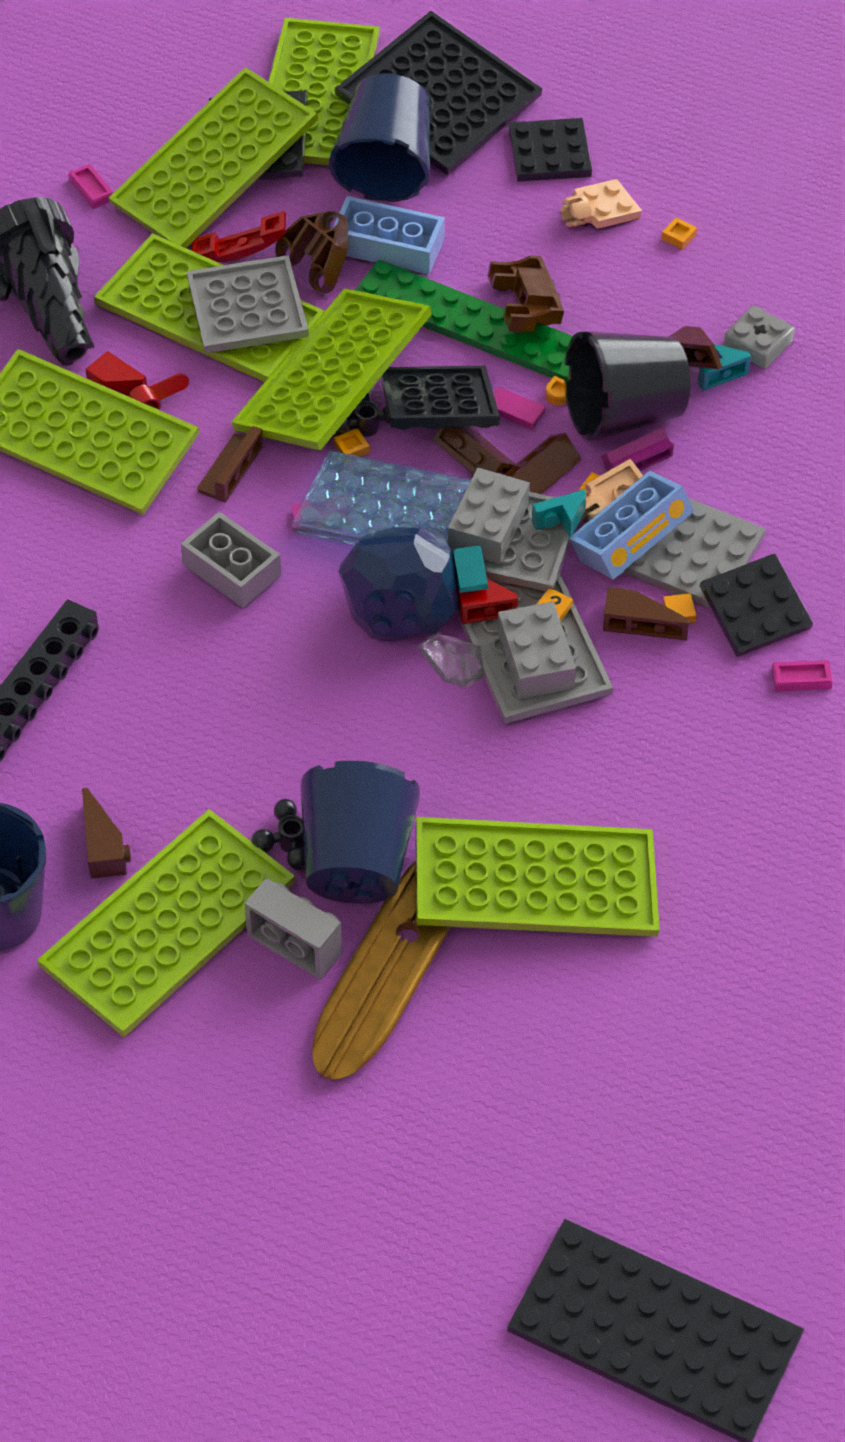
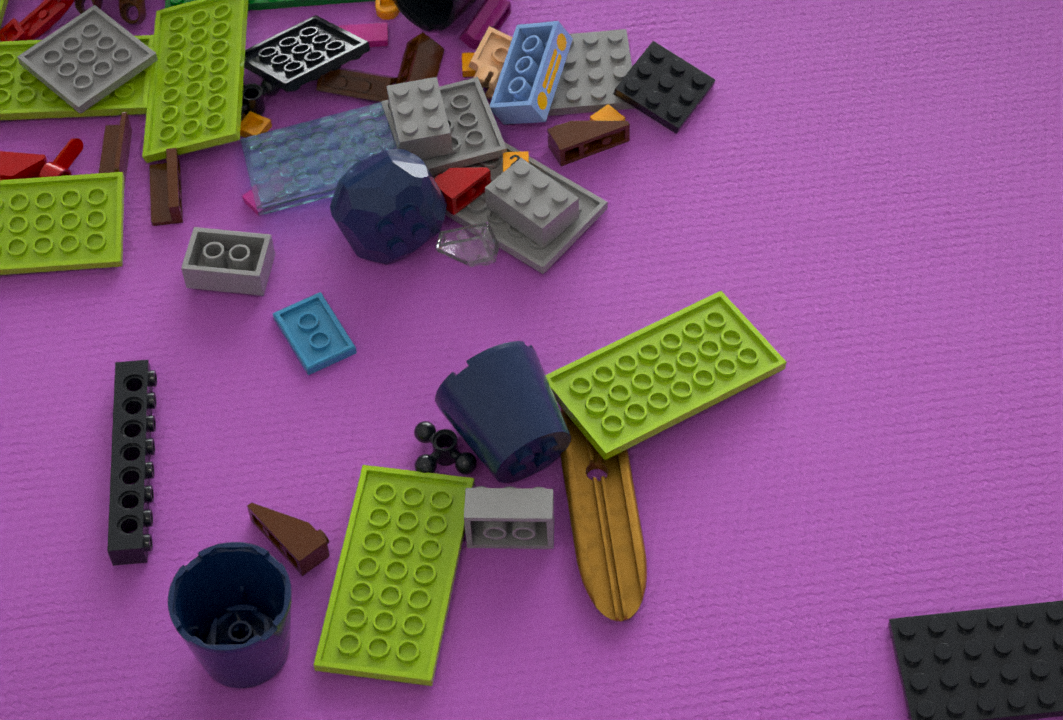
camera: 30 degrees left, 0 degrees up
(215, 404) = (116, 147): none -> reddish brown panel
(261, 667) = (314, 333): none -> dark azure tile
(470, 569) = (441, 165): teal slope -> none
(562, 509) = (472, 87): teal slope -> none
(802, 675) = (735, 121): dark pink tile -> none

